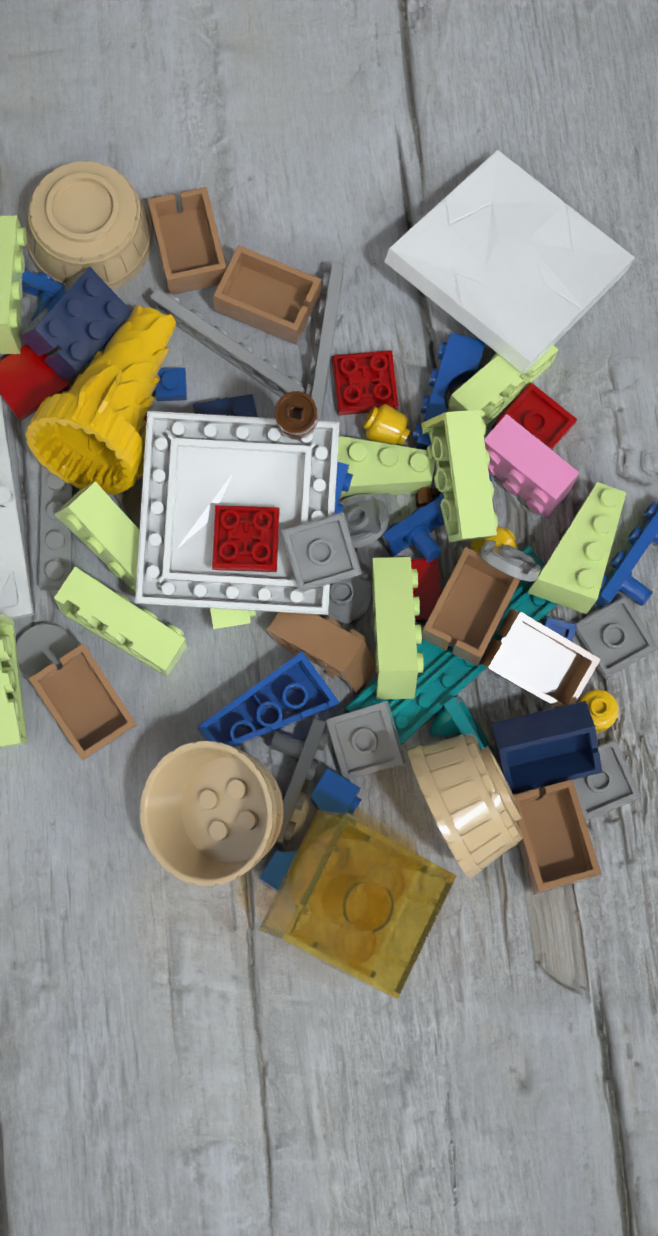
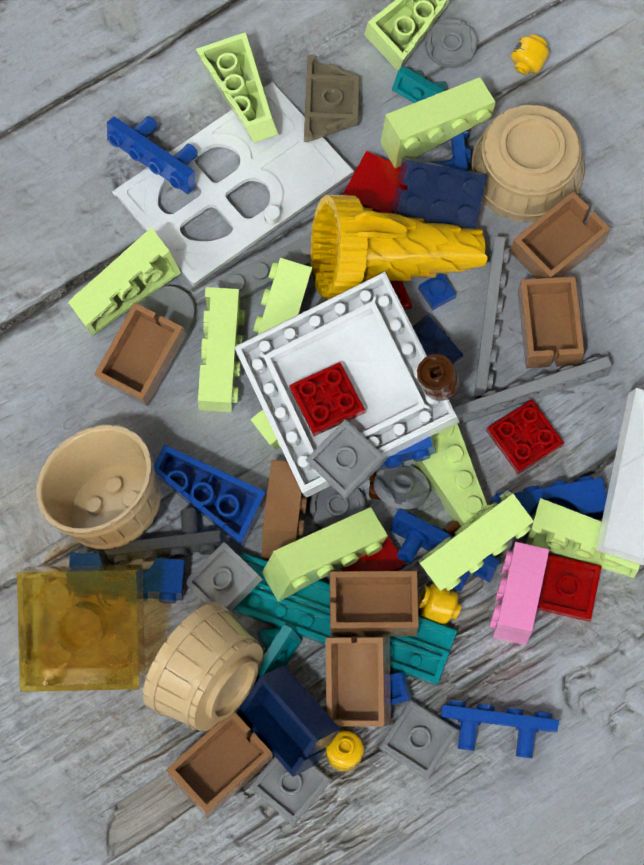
camera: 65 degrees right, 5 degrees down
(386, 425) = (494, 469): yellow head -> none
(510, 561) = (423, 612): light grey tile -> none
(580, 558) = (467, 672): yellowish green wedge -> none

